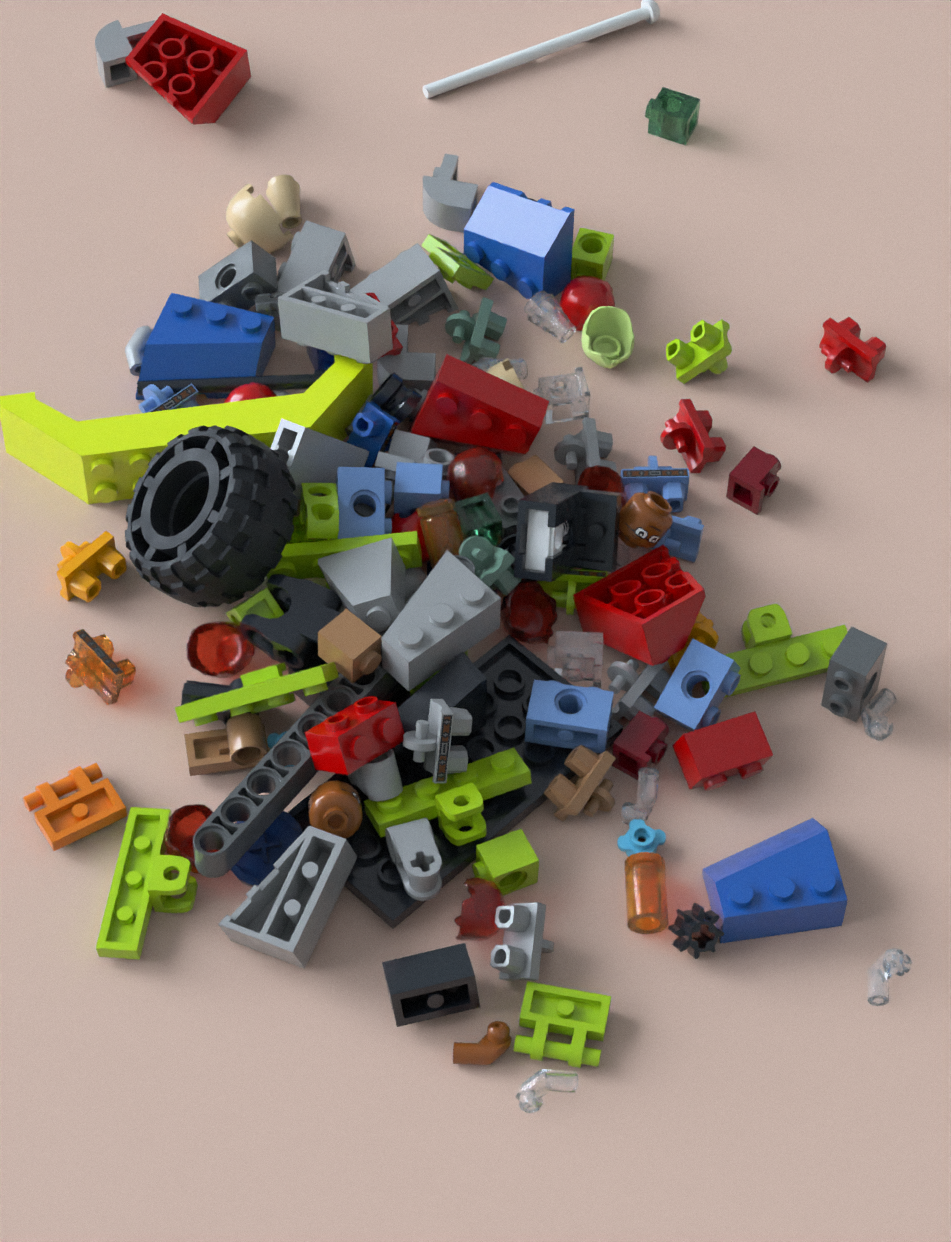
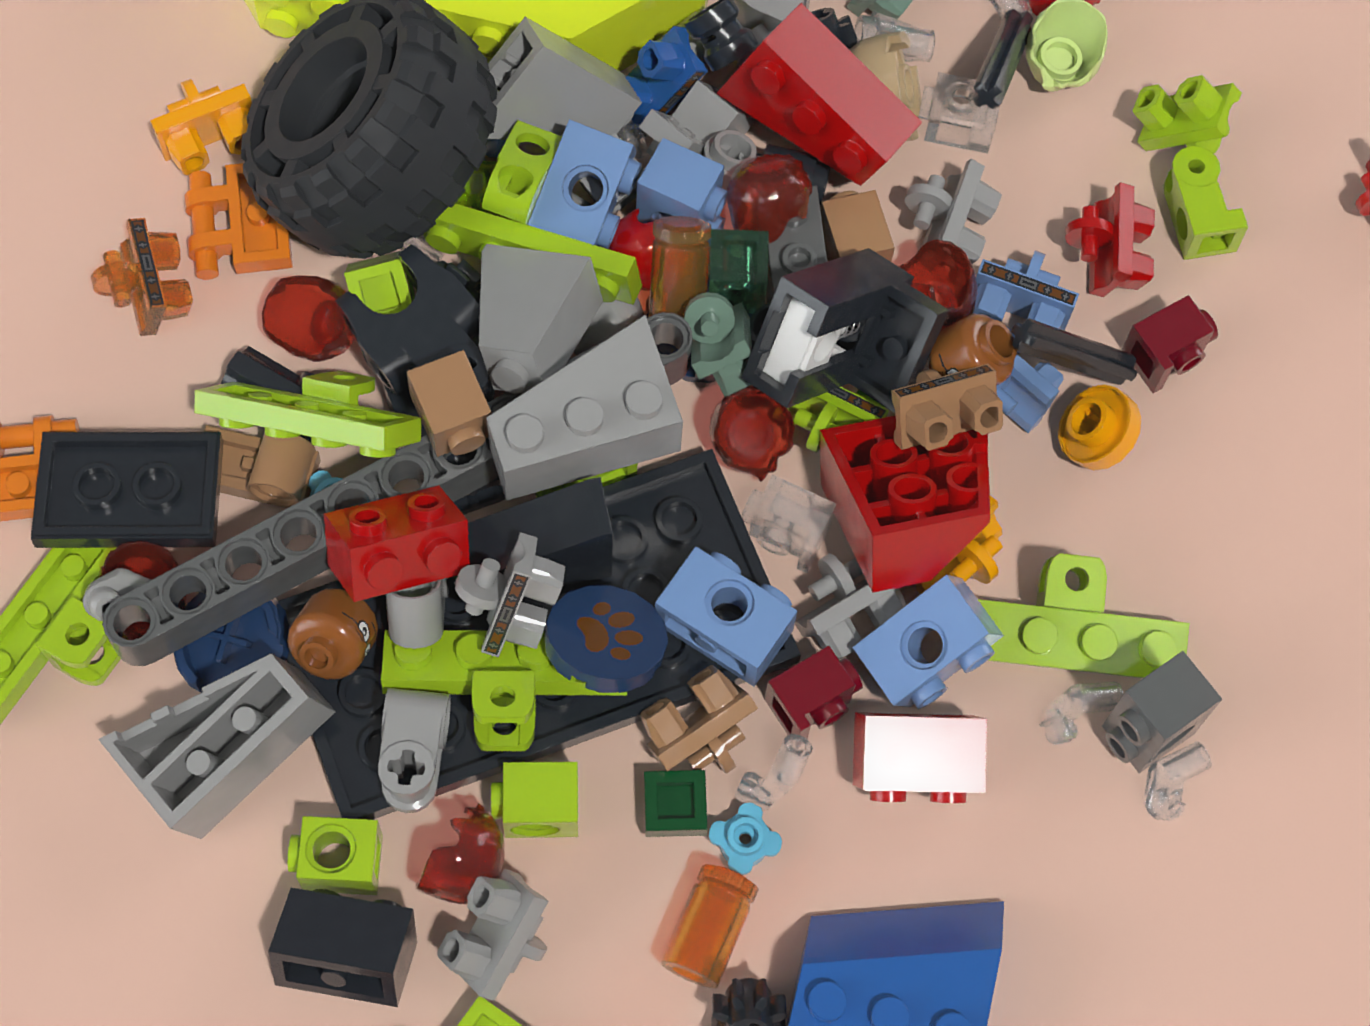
camera: 20 degrees right, 15 degrees up
(151, 609) = (254, 236): none -> orange plate
(155, 783) = (127, 489): none -> black tile
(181, 839) = (109, 588): none -> light grey arm
(399, 925) = (357, 874): none -> lime brick
(506, 748) = (605, 638): none -> dark blue tile
(575, 355) = (1002, 59): none -> black axle
(589, 836) = (675, 803): none -> dark green plate
(646, 548) = (946, 406): none -> medium nougat hips
(702, 499) = (1073, 351): none -> black axle
(733, 400) = (1198, 206): none -> lime leg
(737, 539) = (1099, 427): none -> light orange plate
(798, 695) = (1074, 702): none -> clear arm

